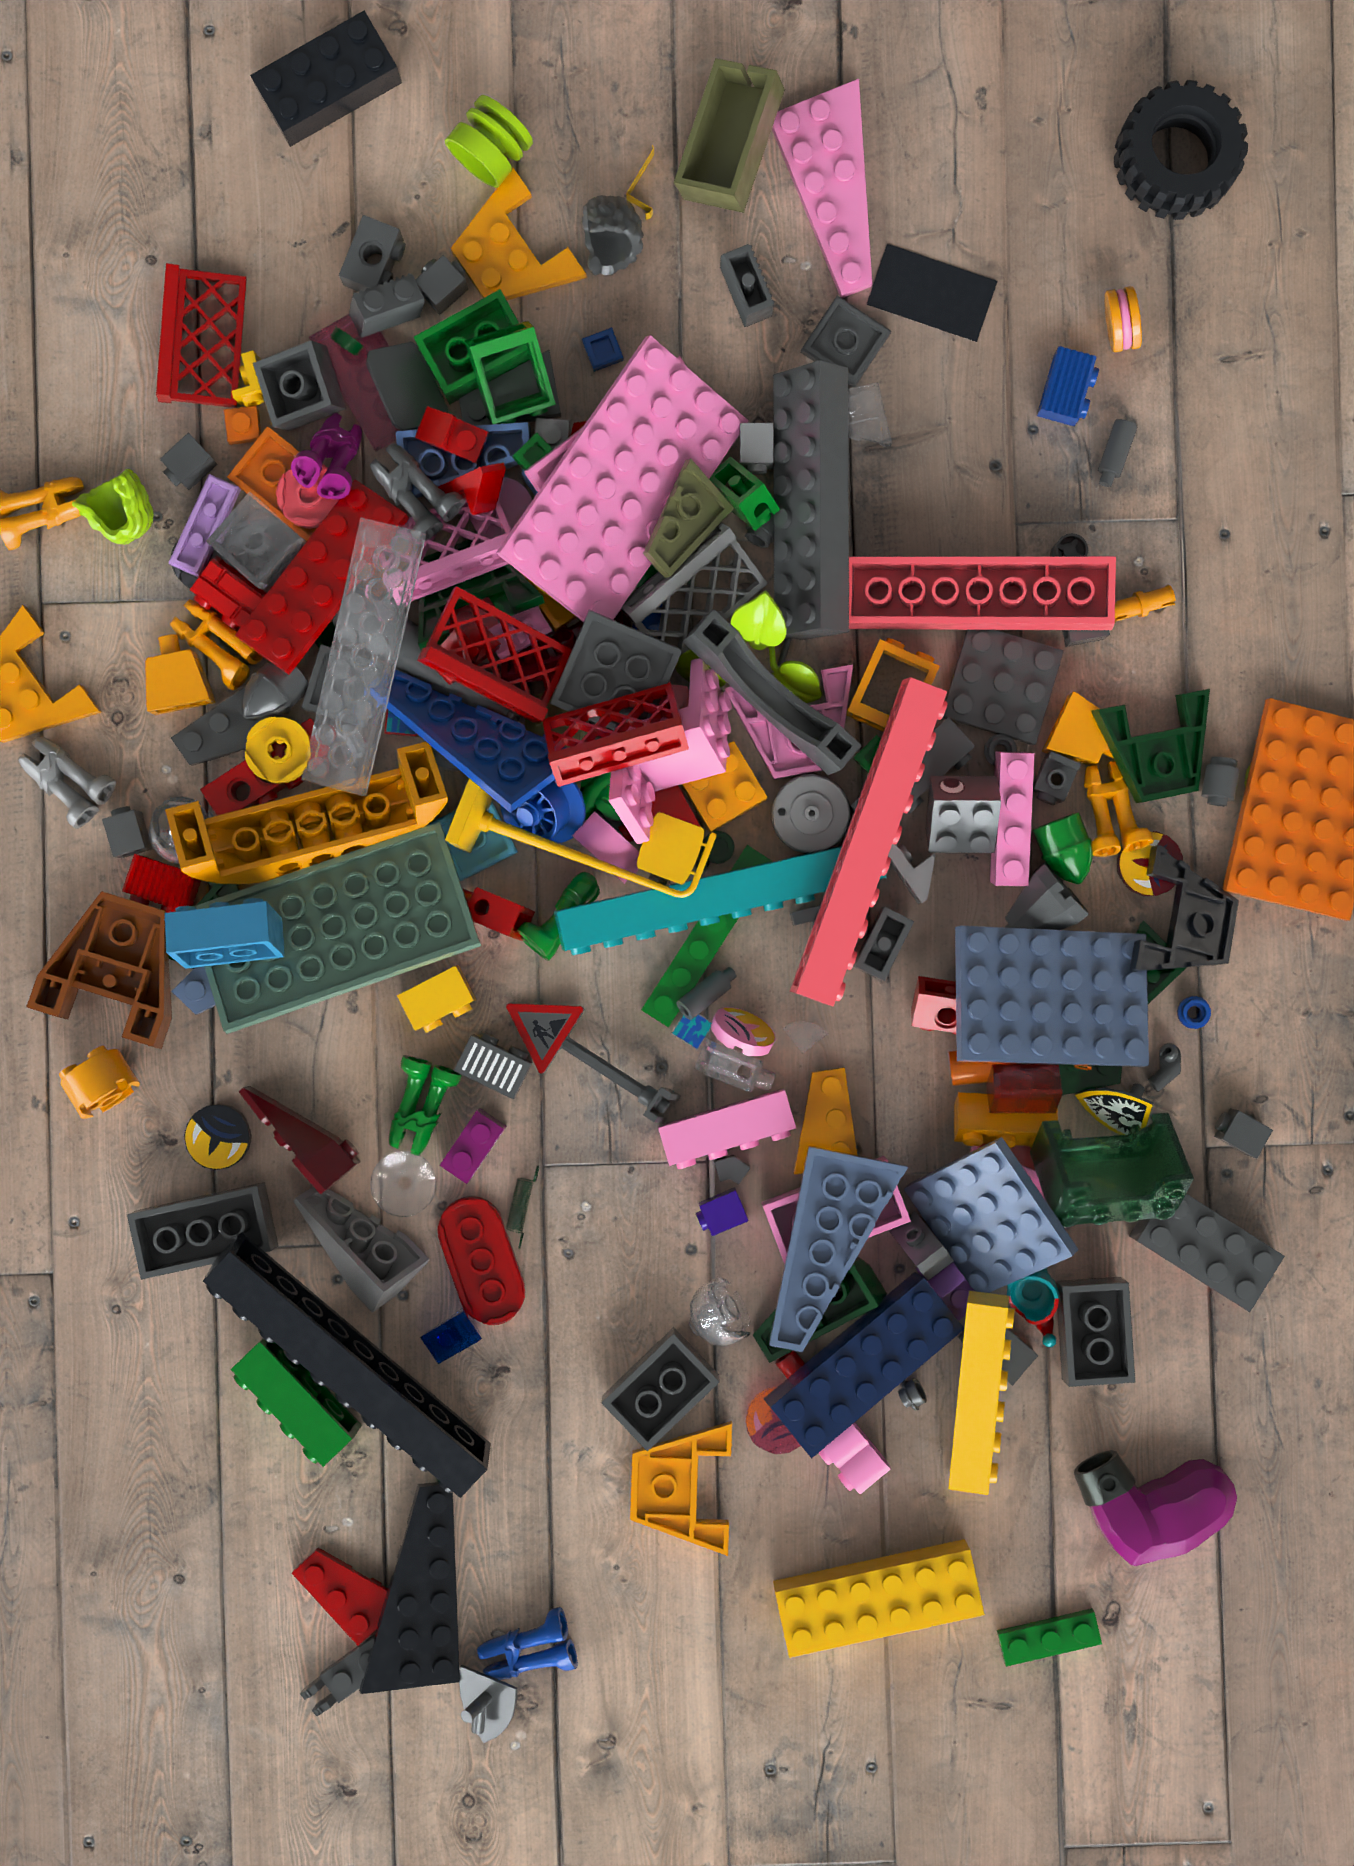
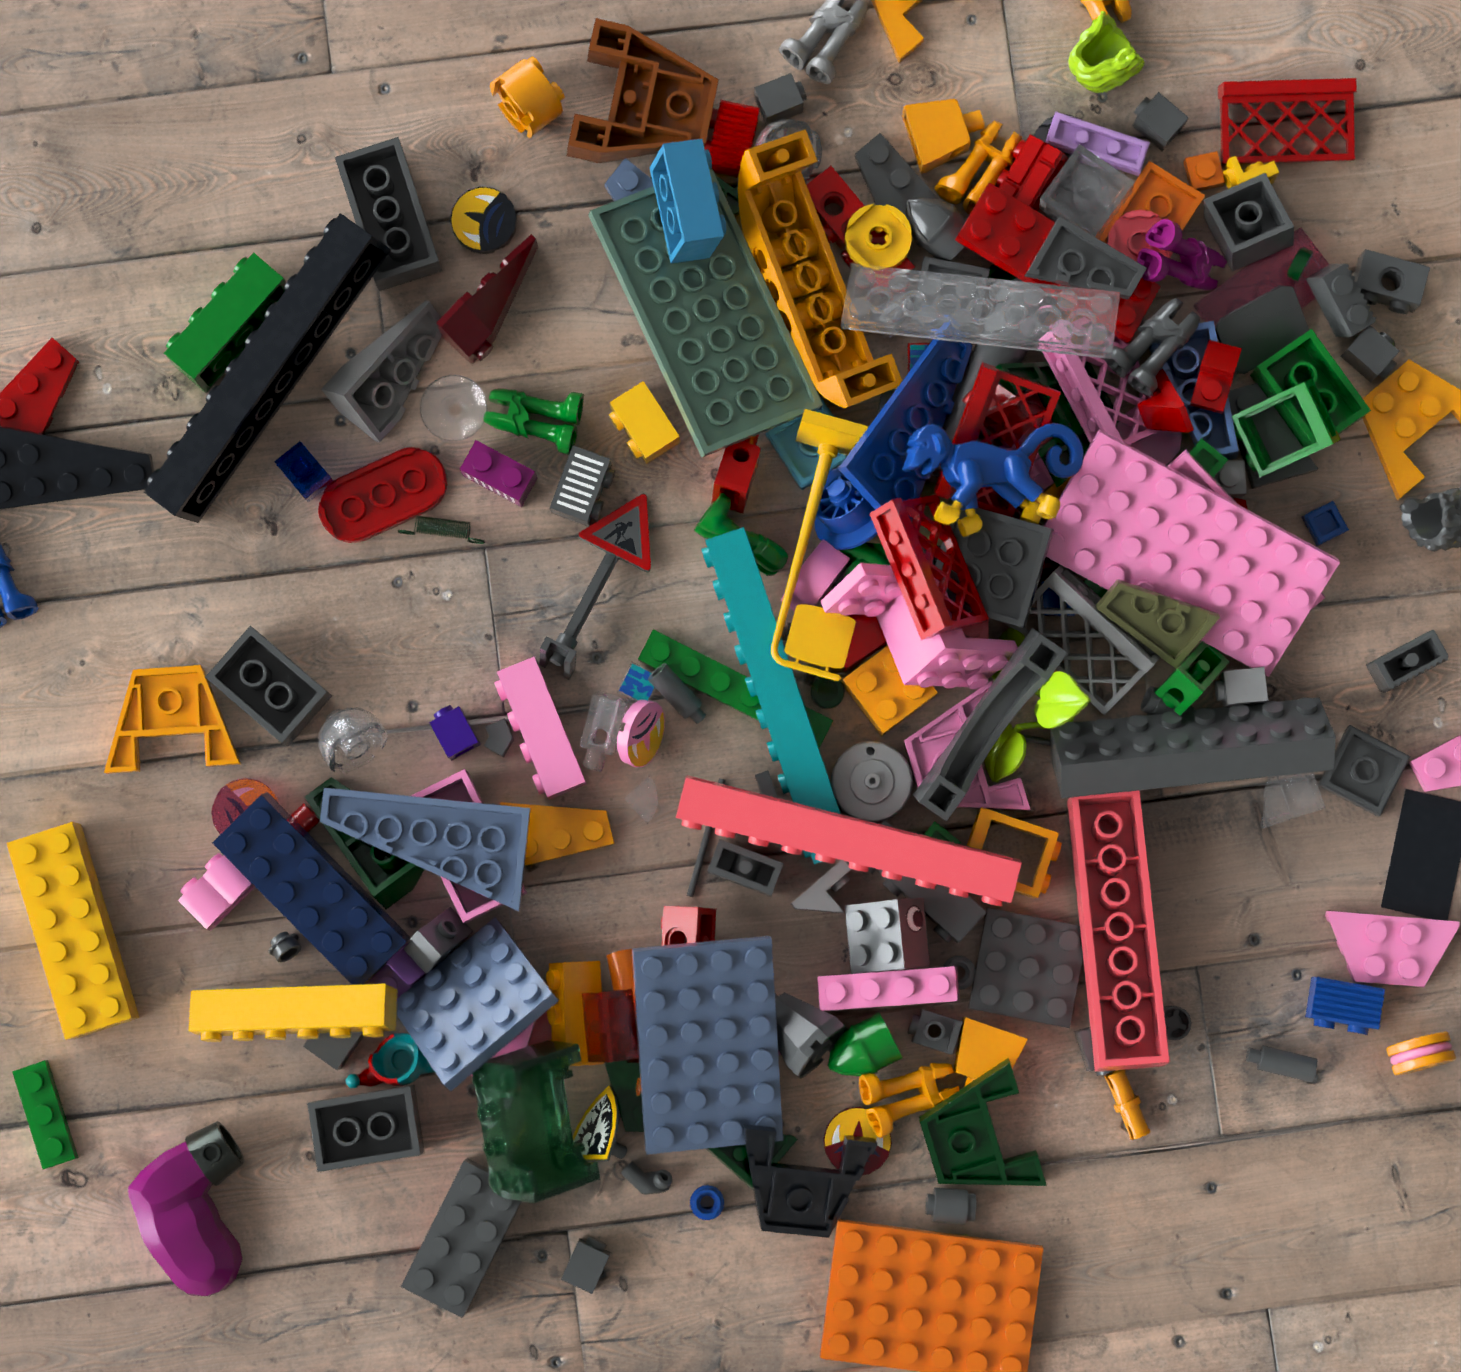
camera: 80 degrees right, 5 degrees down
(325, 550) = (1083, 261): none -> dark grey wing
(521, 674) = (983, 465): none -> blue animal
(861, 984) = (700, 857): none -> dark grey axle
(1016, 336) = (1391, 947): none -> bright pink wing

